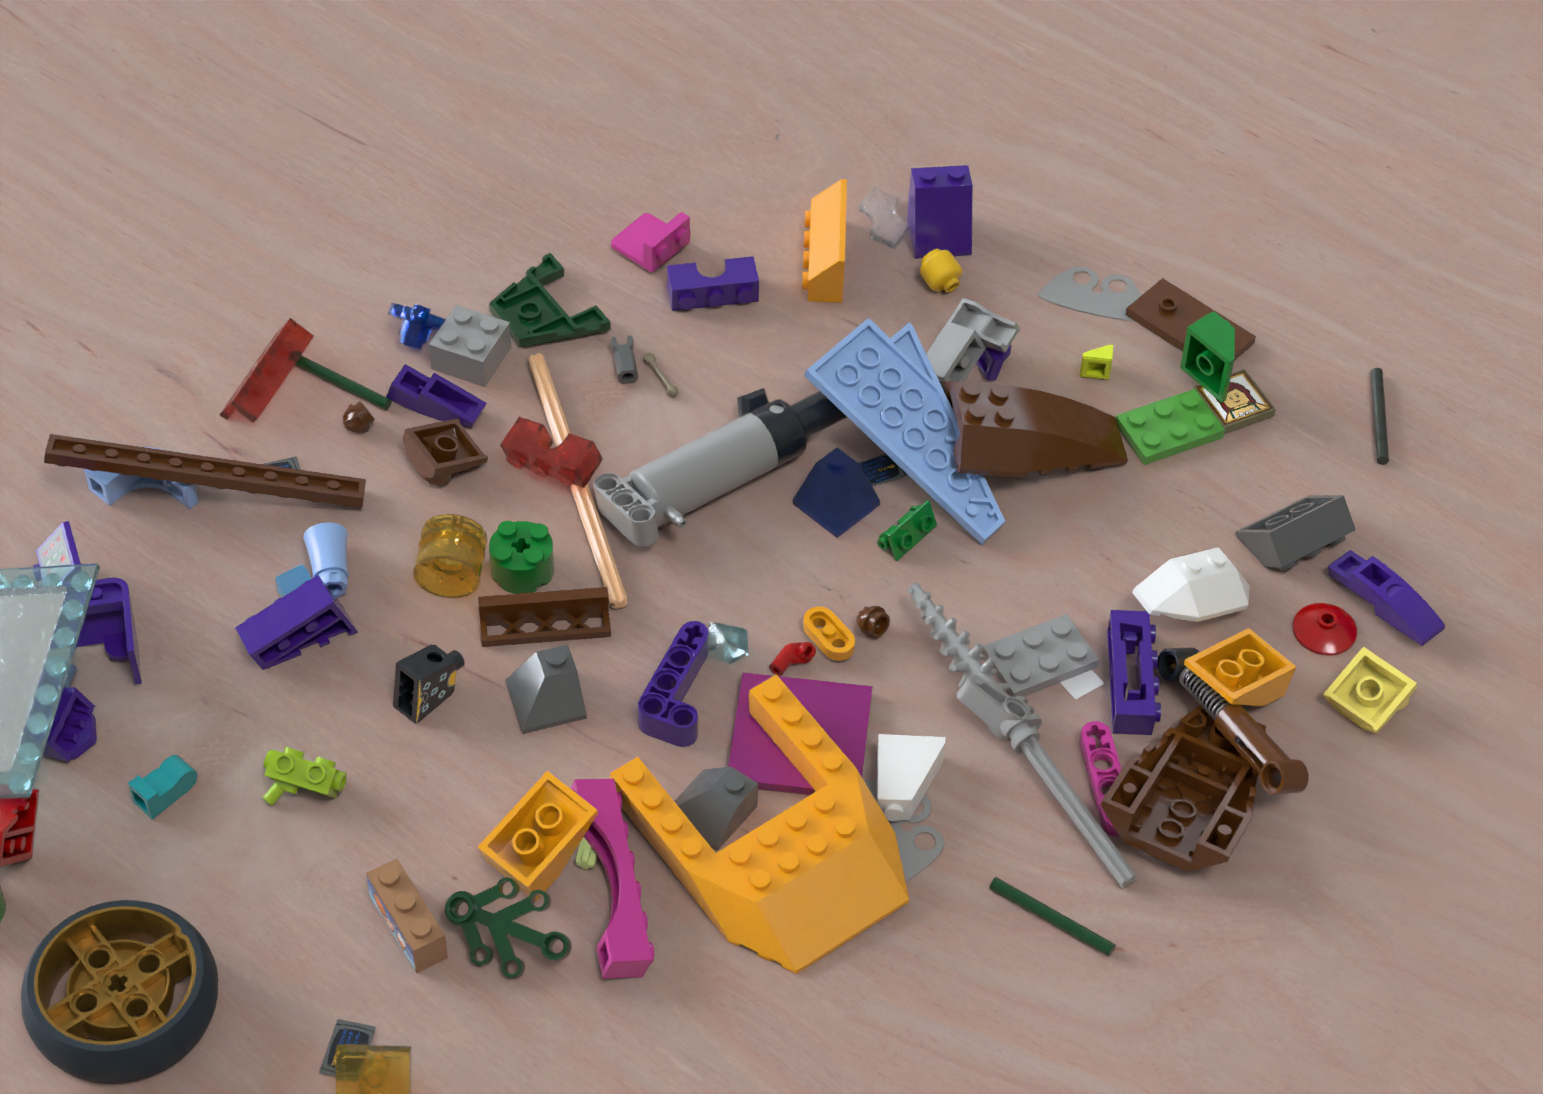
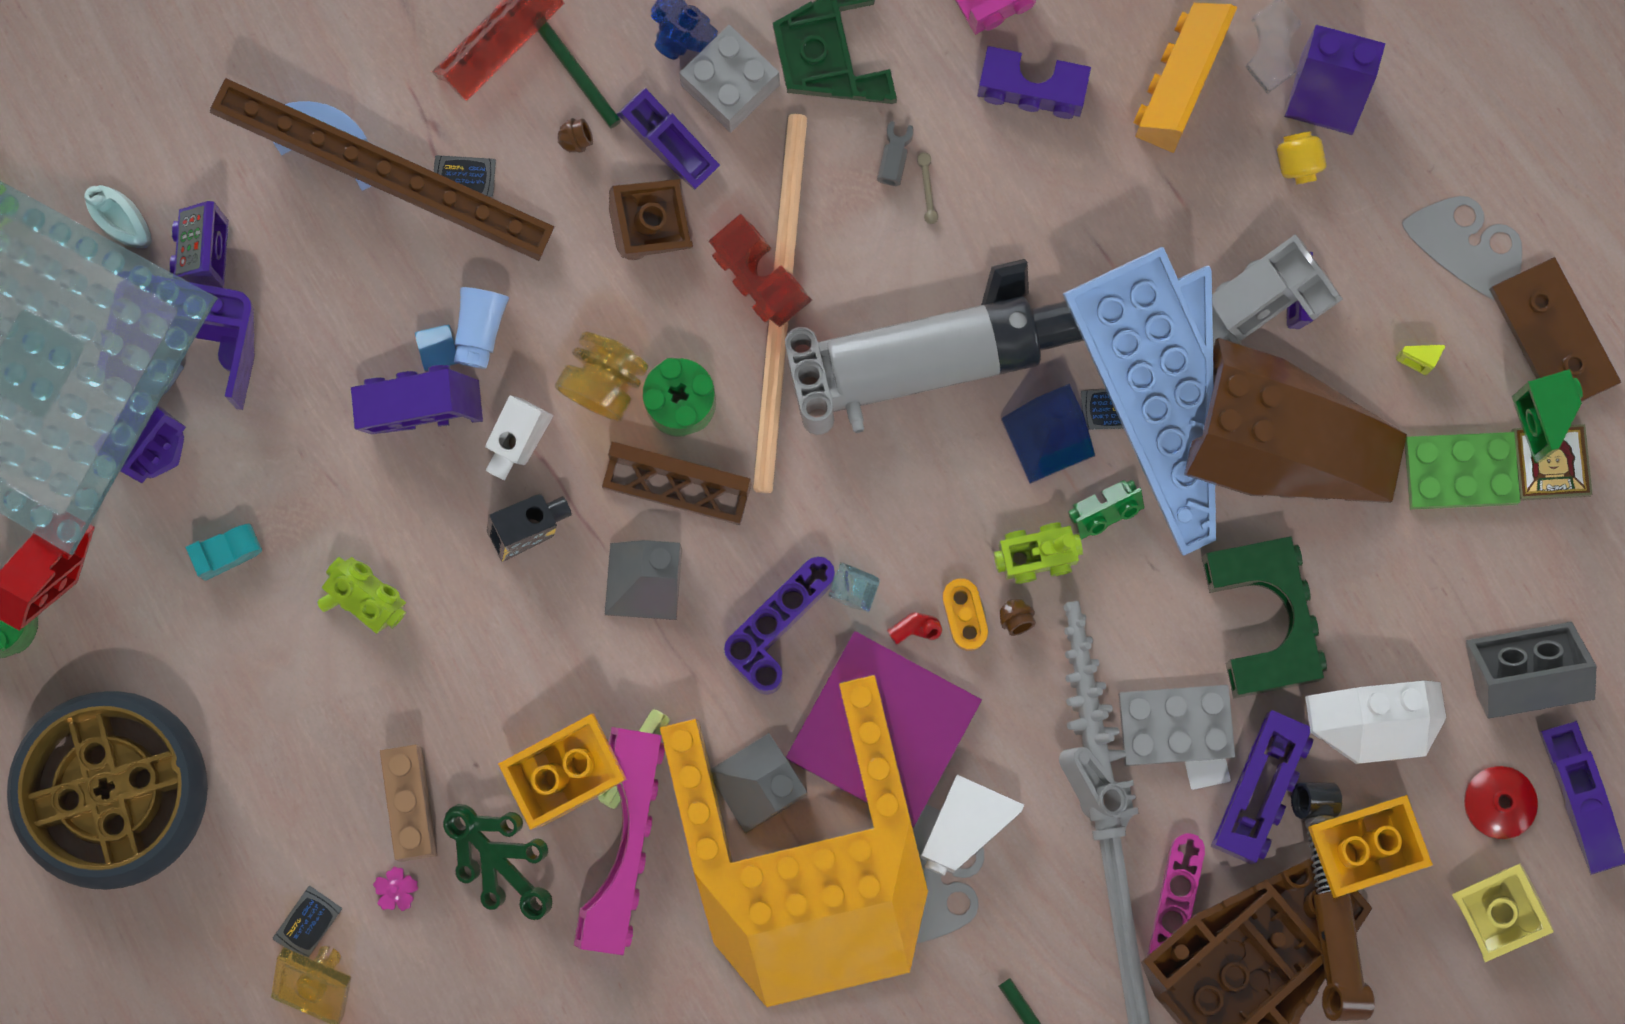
camera: 25 degrees right, 30 degrees up
(393, 617) = (524, 422): none -> white torso
(420, 994) = (395, 890): none -> dark pink plant
(868, 571) = (1049, 550): none -> lime brick
(1062, 526) = (1273, 567): none -> dark green arch

